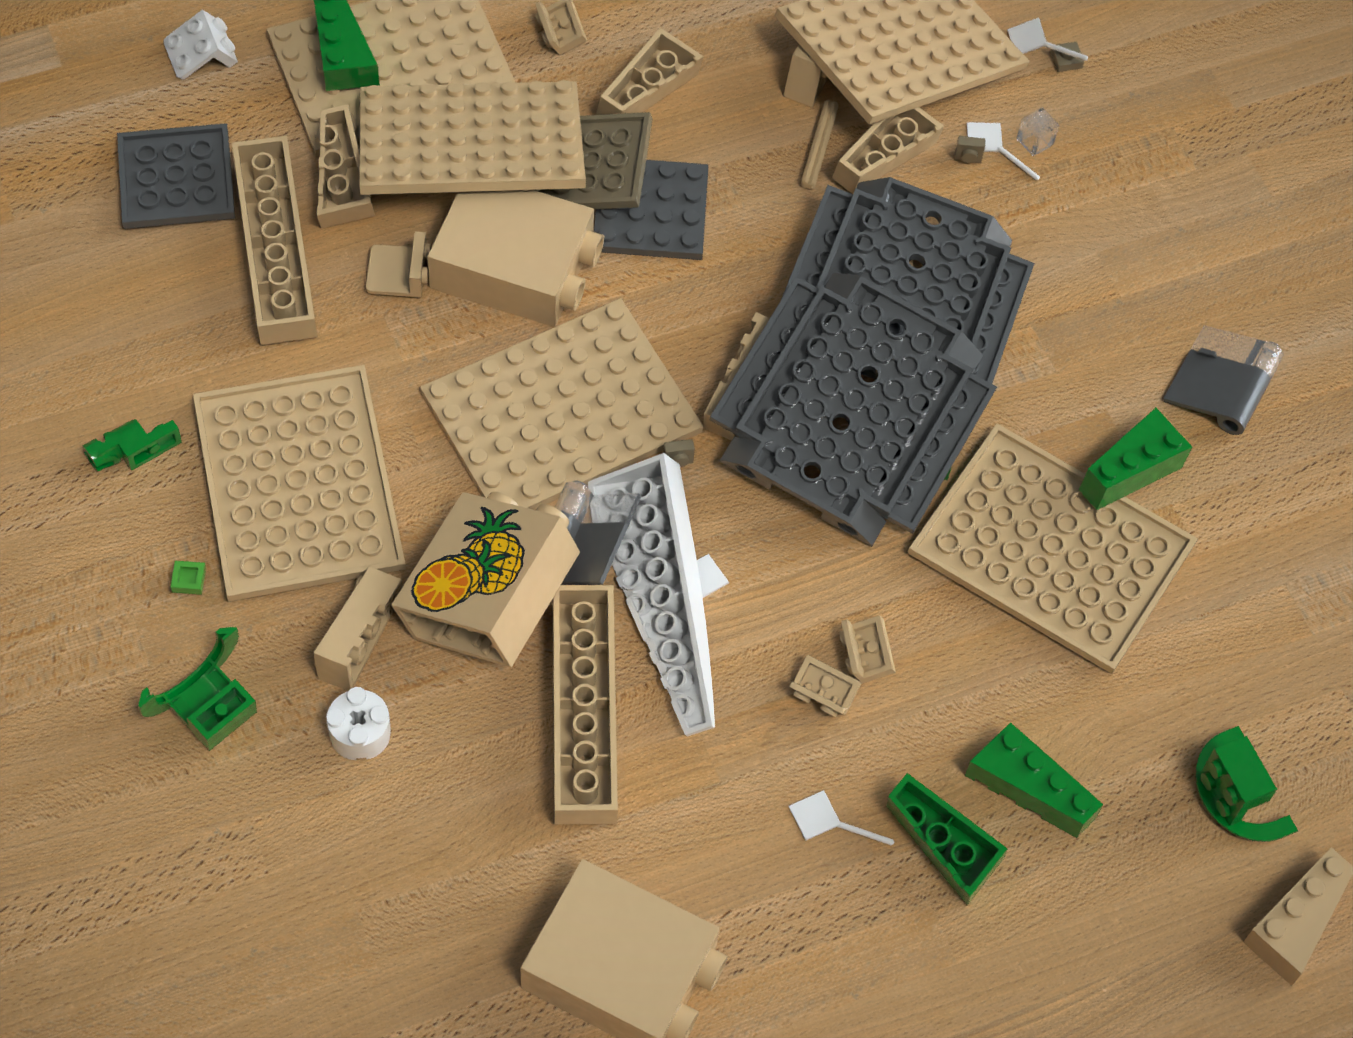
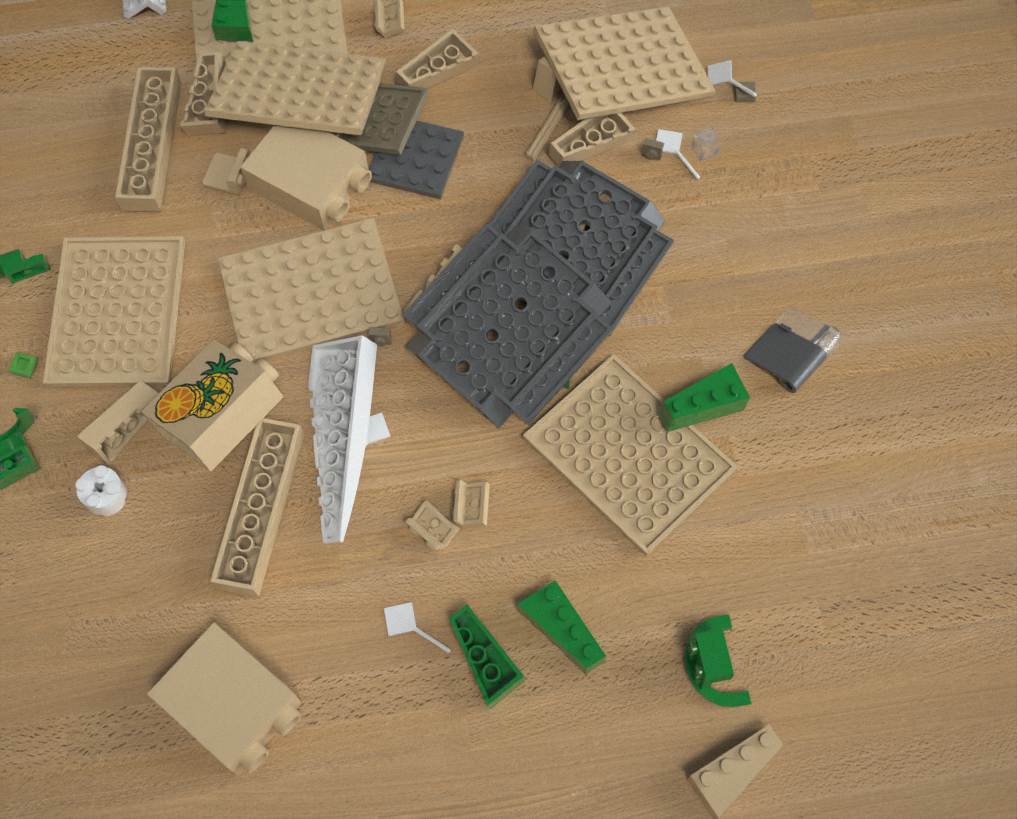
camera: 20 degrees right, 5 degrees up
(175, 176) = (98, 84): dark grey plate -> none
(597, 529) = (298, 381): door -> none

